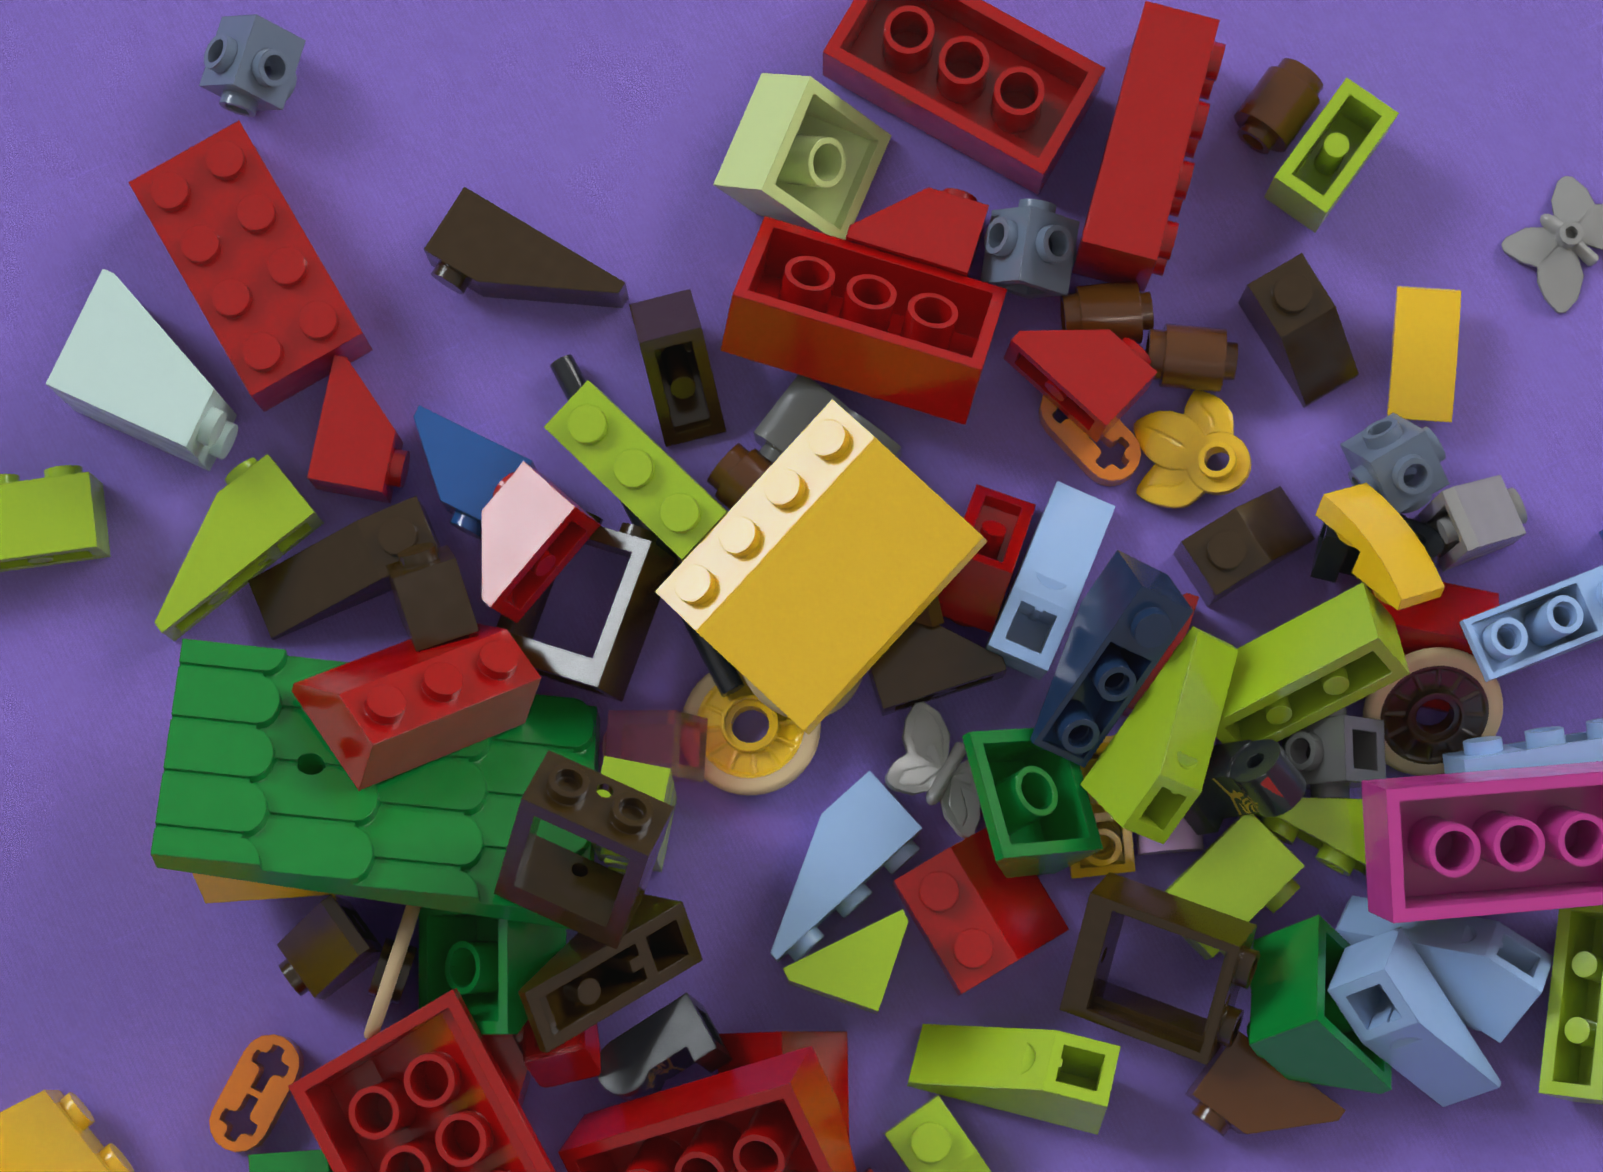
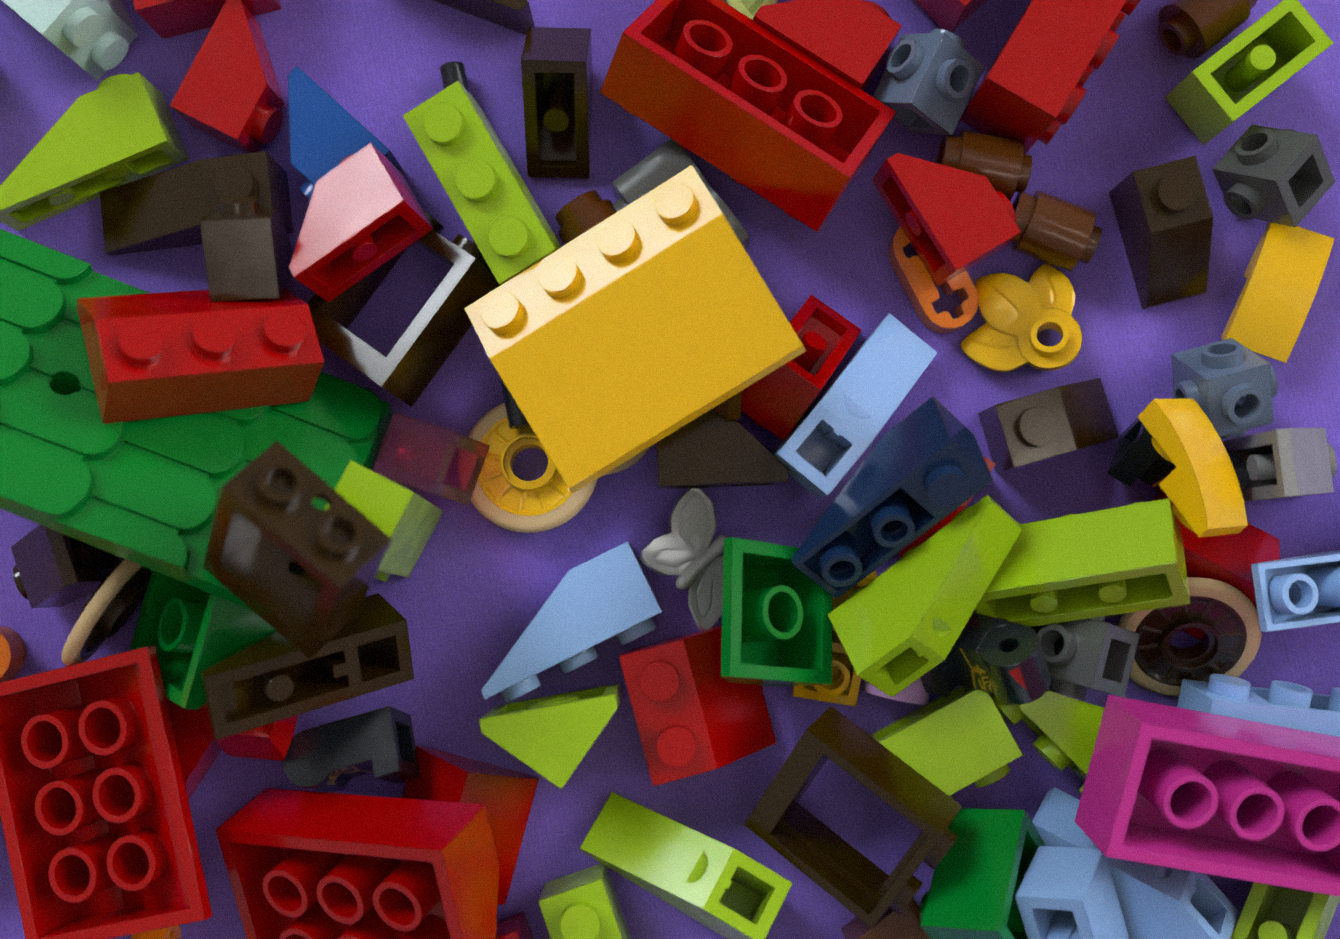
camera: 15 degrees right, 5 degrees up
(1384, 248) = (1274, 175): none -> dark grey brick

